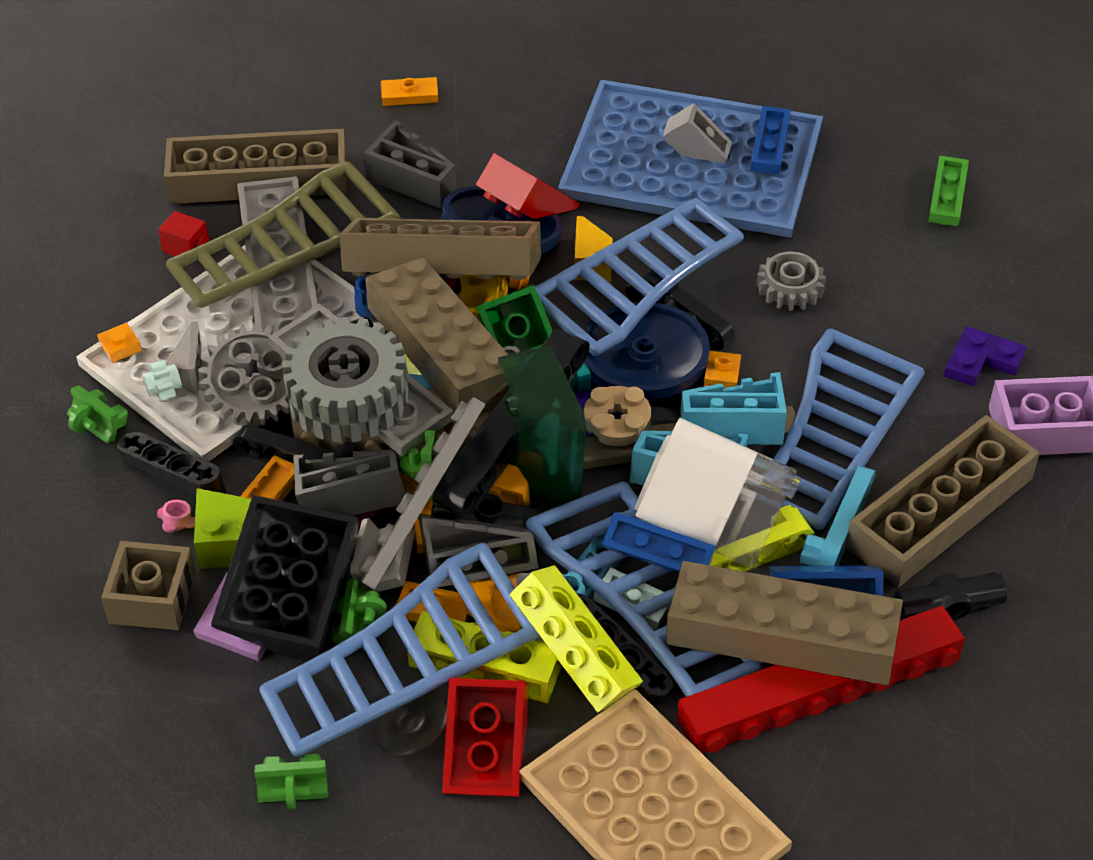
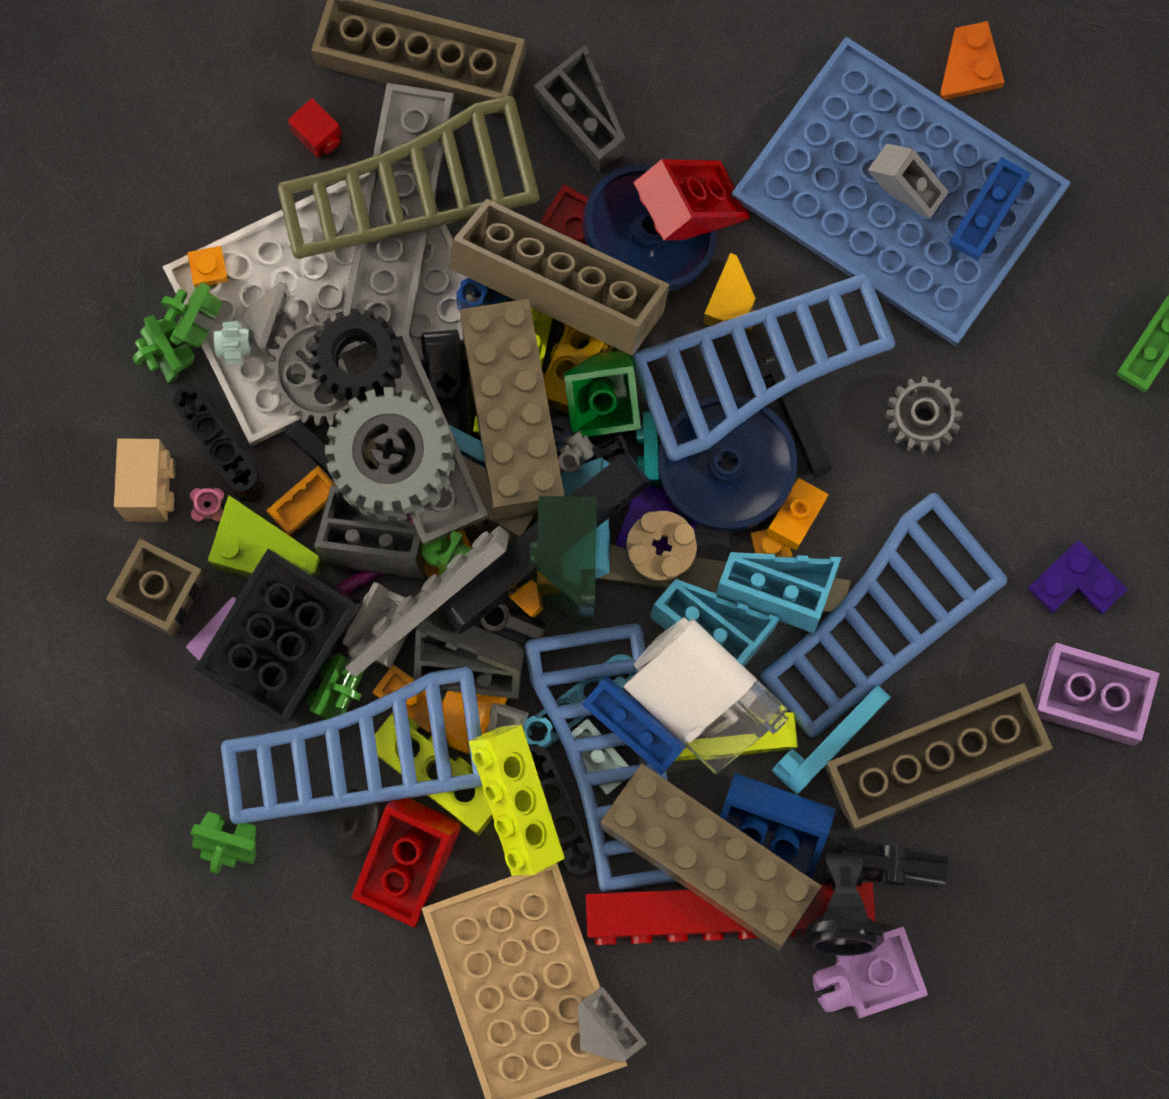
camera: 25 degrees right, 30 degrees up
(101, 368) = (199, 302): none -> bright green hips
(109, 502) = (143, 480): none -> tan brick
(279, 314) = (353, 329): none -> black tyre
(706, 75) = (971, 63): none -> orange wing
(753, 811) = (606, 1029): none -> light grey slope
(945, 629) = (845, 924): none -> black piece
(982, 689) = (873, 979): none -> lavender plate

